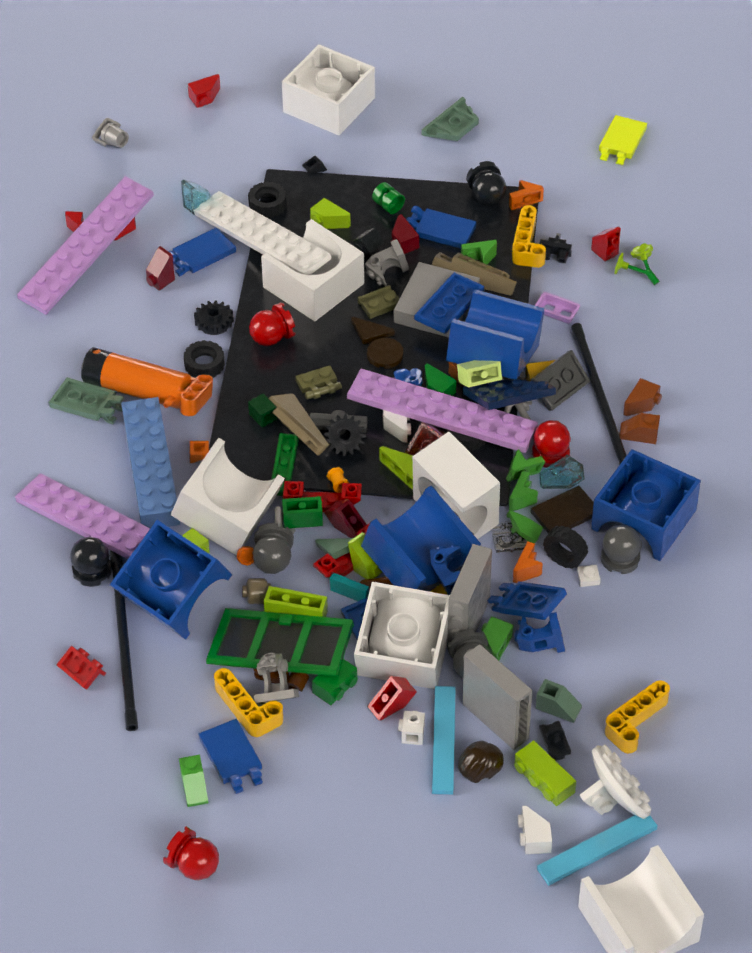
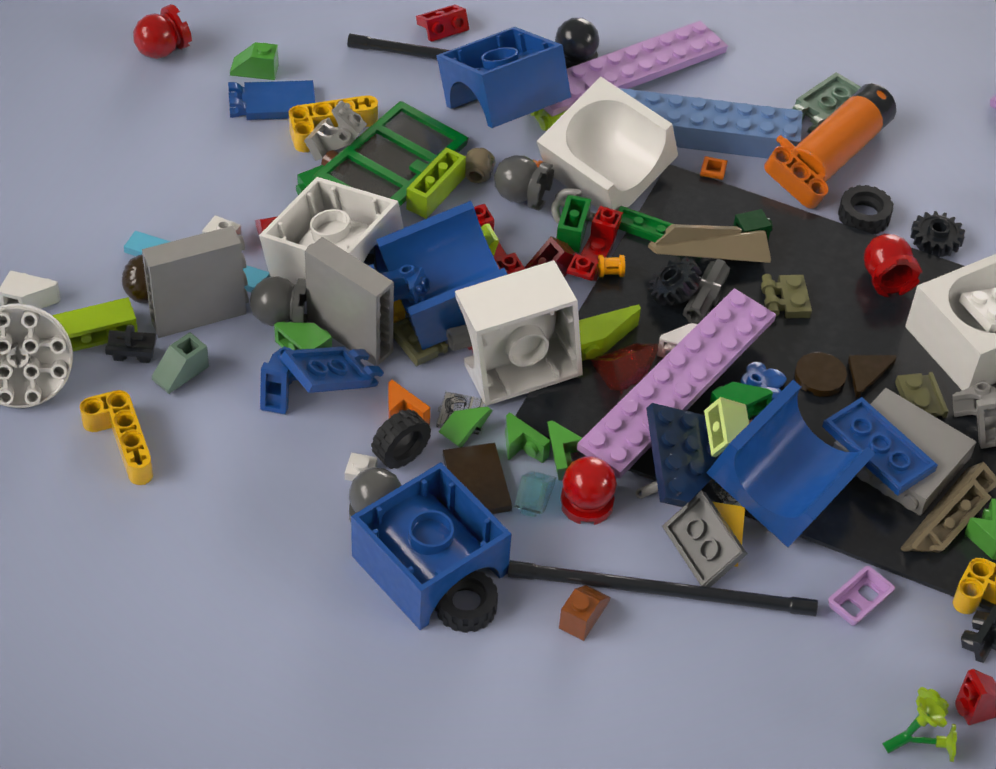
camera: 105 degrees right, 0 degrees up
(334, 547) = (511, 239): sand green tile -> none
(642, 398) = (644, 632): dark orange slope -> none

